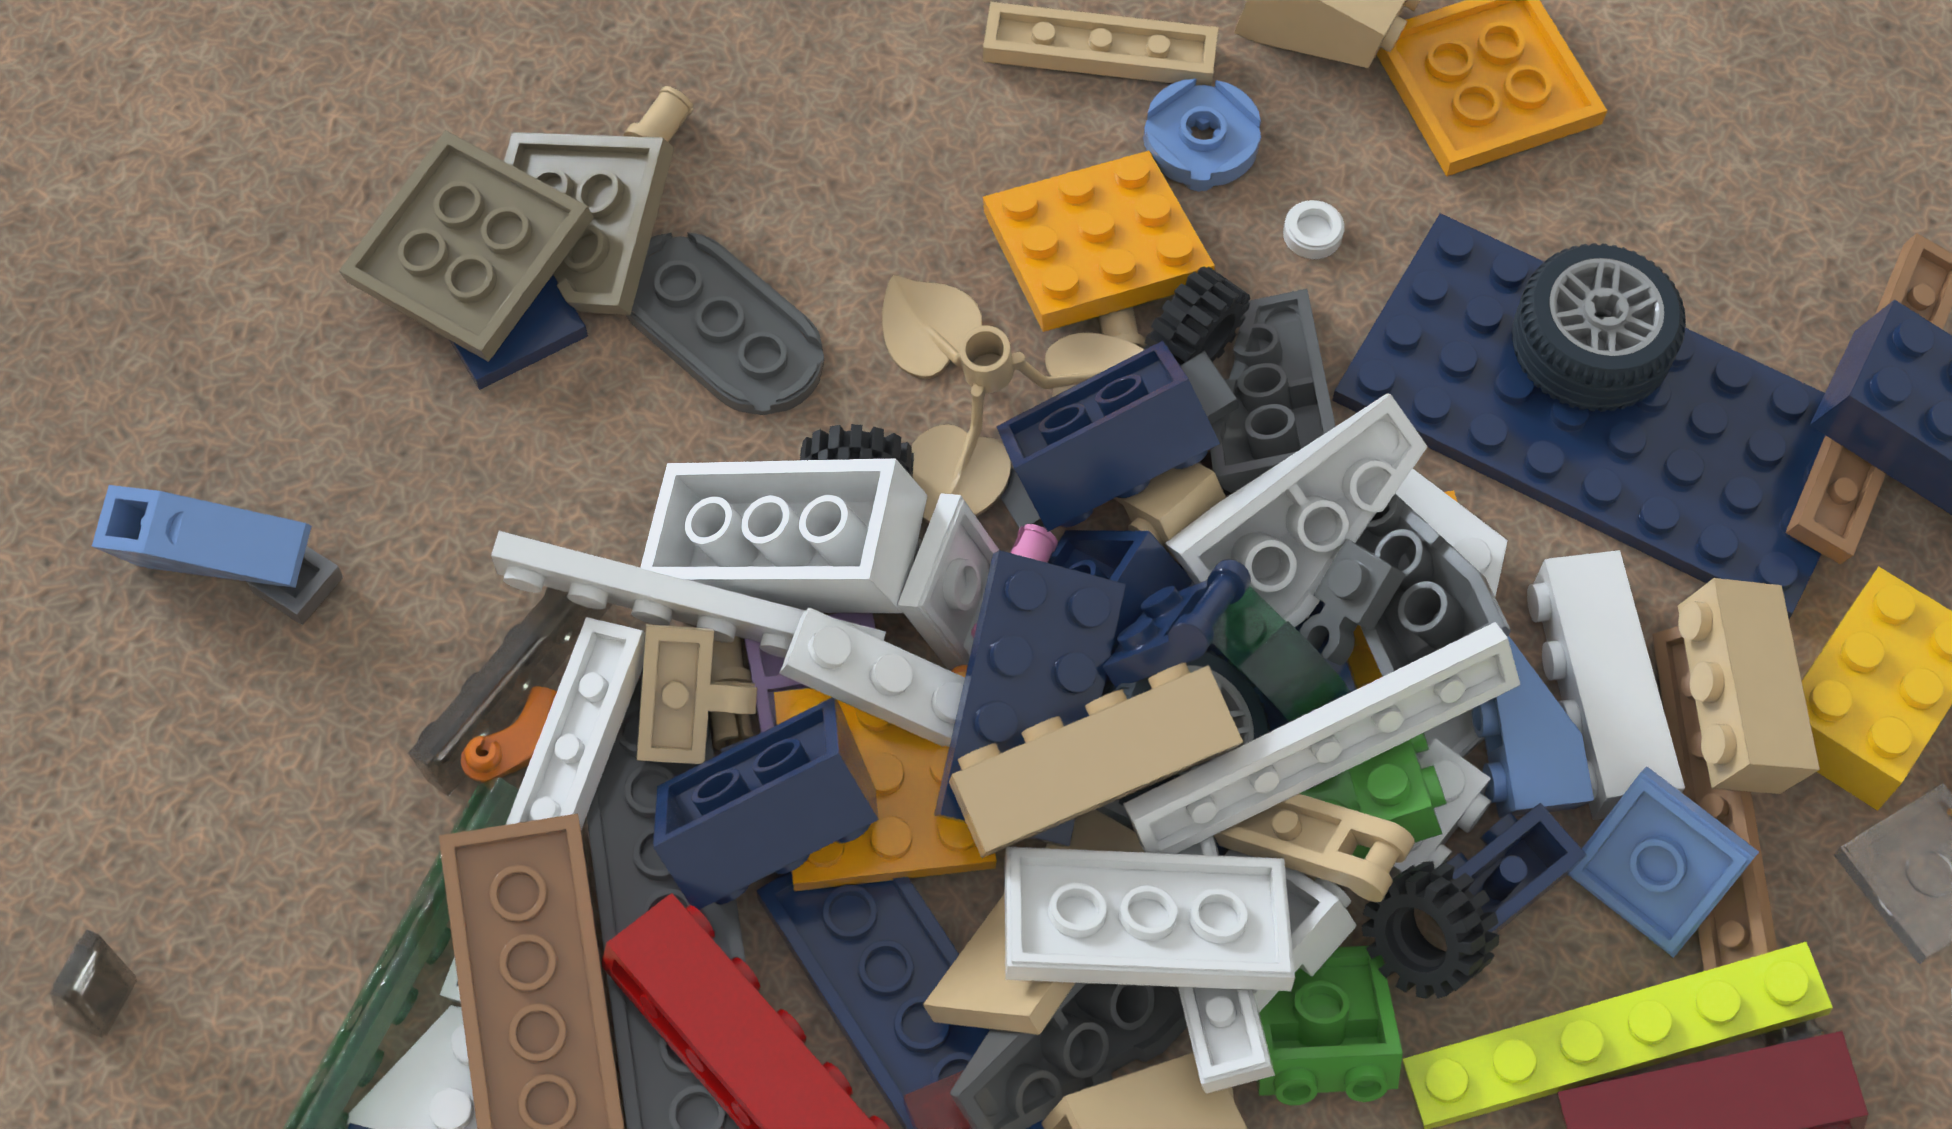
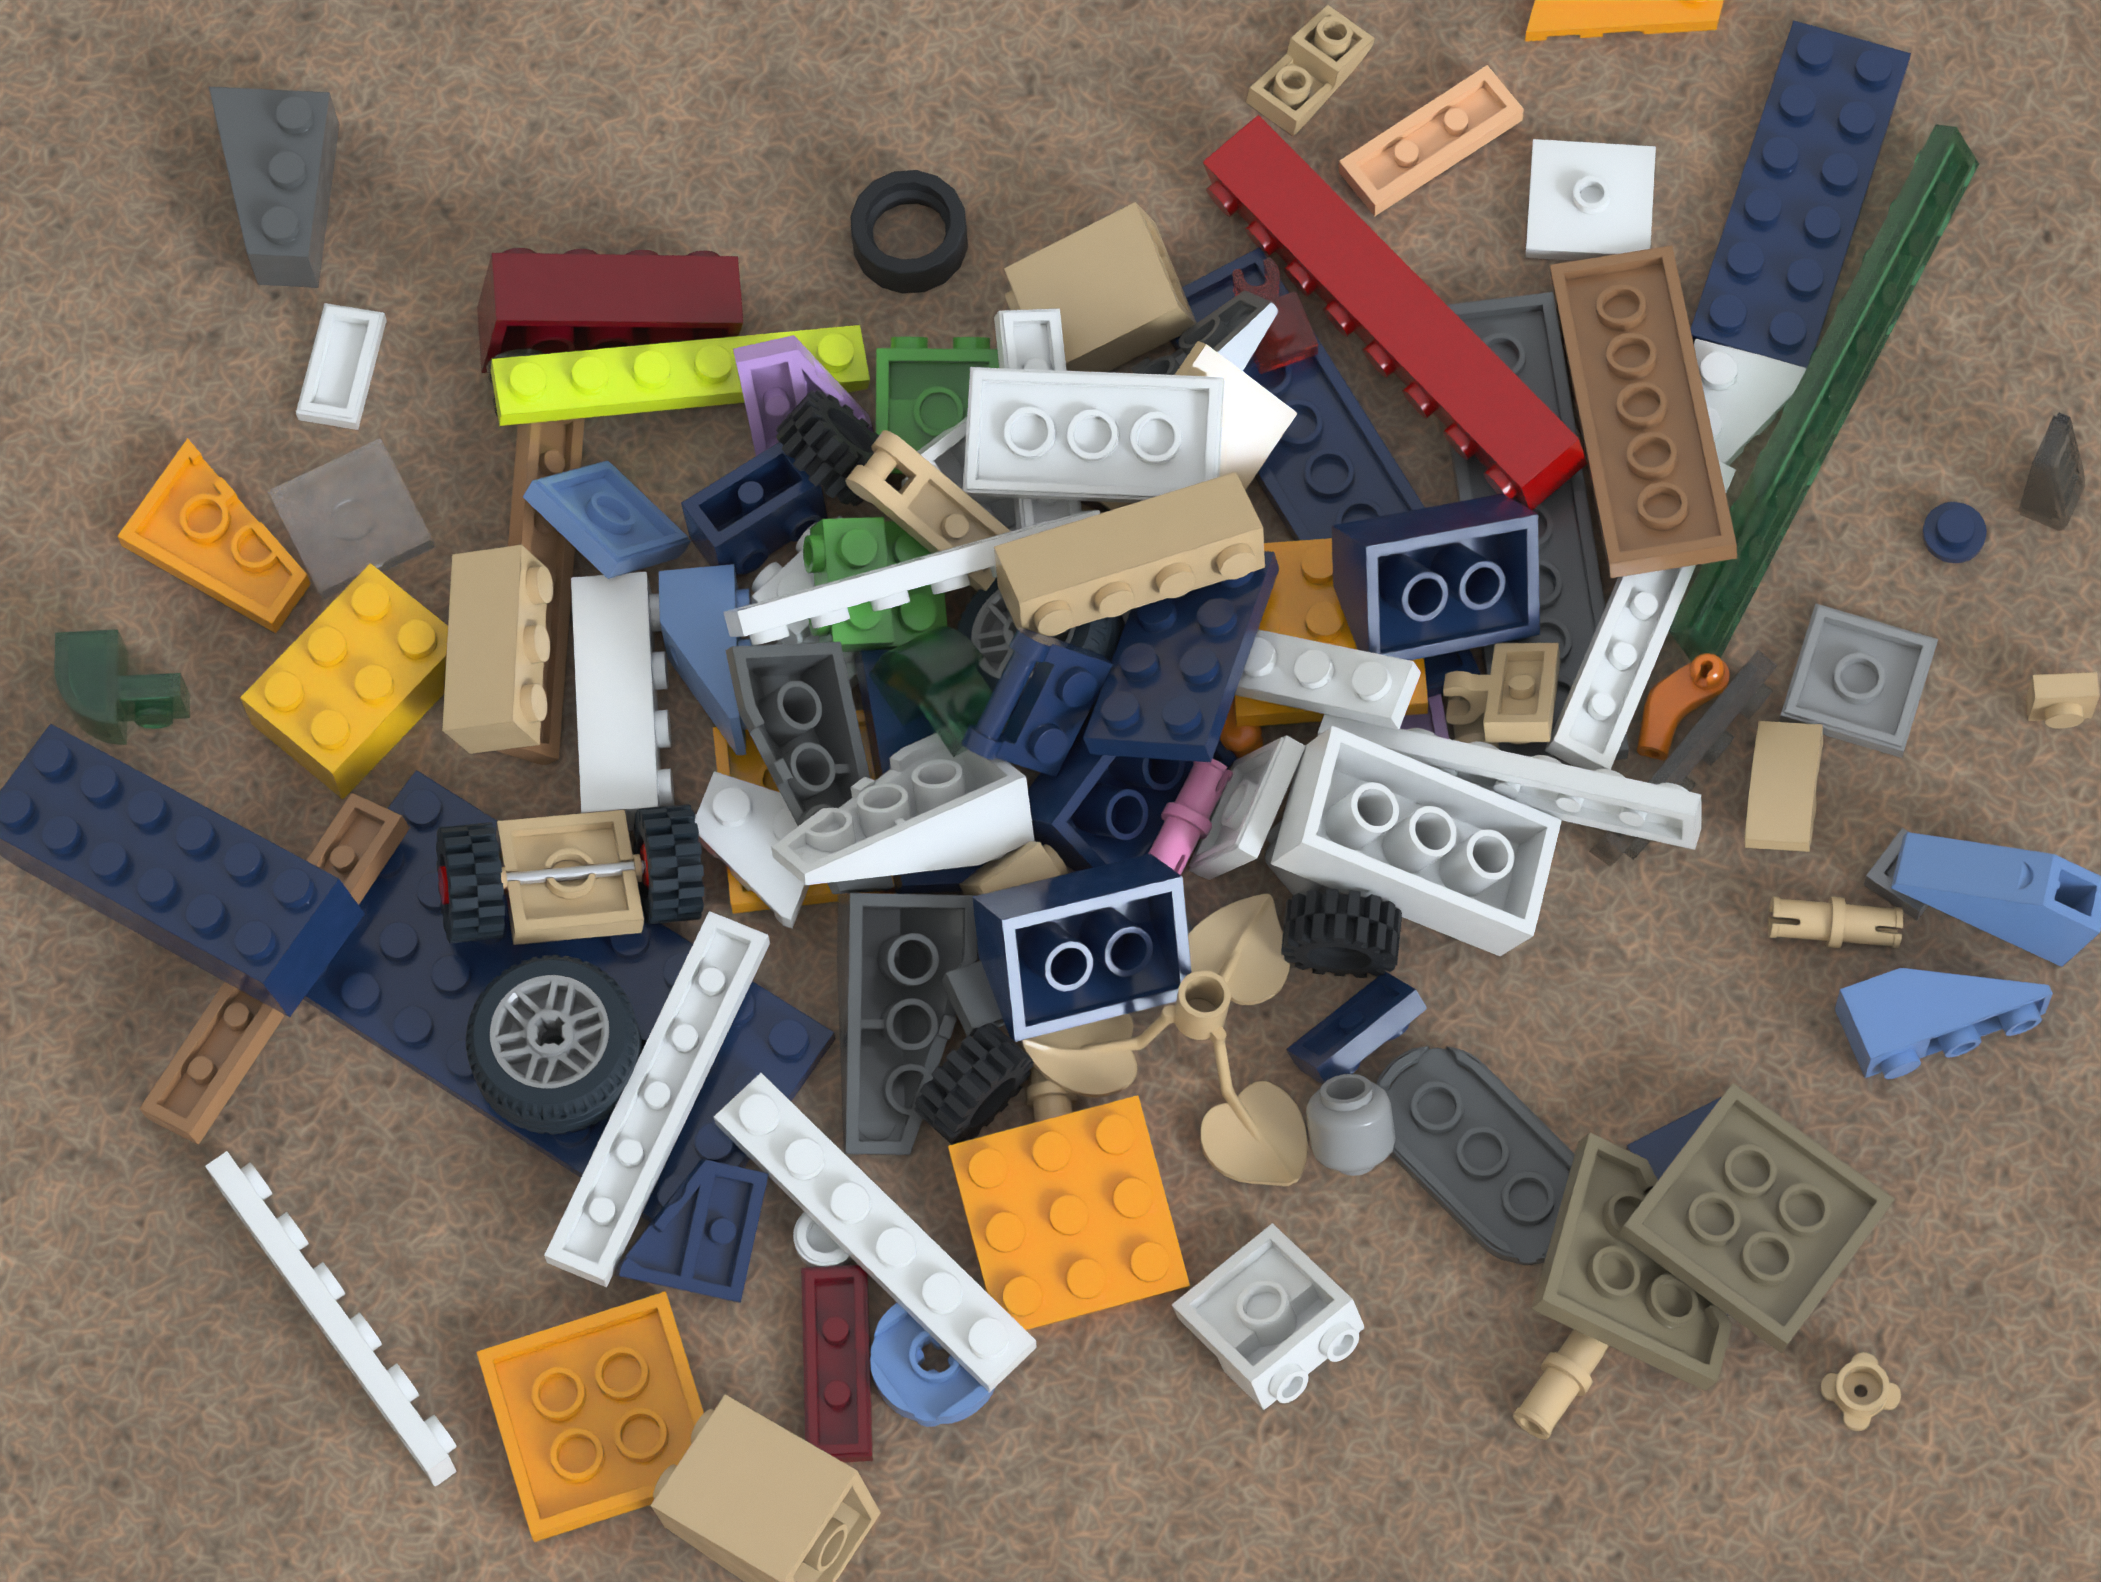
camera: 170 degrees left, 5 degrees up
(115, 754) = (2062, 698): none -> tan plate
(208, 940) = (1954, 532): none -> dark blue plate
(293, 444) = (1922, 1012): none -> medium blue slope
(328, 780) = (1859, 679): none -> light grey tile
(374, 531) = (1835, 922): none -> tan pin
(385, 131) = (1863, 1372): none -> tan plate
(412, 656) = (1783, 786): none -> tan slope
(853, 394) = (1357, 1028): none -> dark blue plate
(863, 317) = (1350, 1124): none -> light grey head
(909, 166) = (1271, 1317): none -> white plate
(1099, 44) = (1040, 1482): tan plate -> none
(1275, 209) = (875, 1232): none -> white plate
(1288, 132) = (837, 1361): none -> dark red tile
(1355, 594) = (861, 738): dark grey plate -> none
(1429, 204) = (701, 1233): none -> dark blue wing
(1489, 302) = (657, 1099): none -> white plate
(1489, 1005) = (776, 379): none -> lavender wing
(1621, 479) = (569, 875): none -> plate
(1745, 136) = (351, 1337): none -> white plate

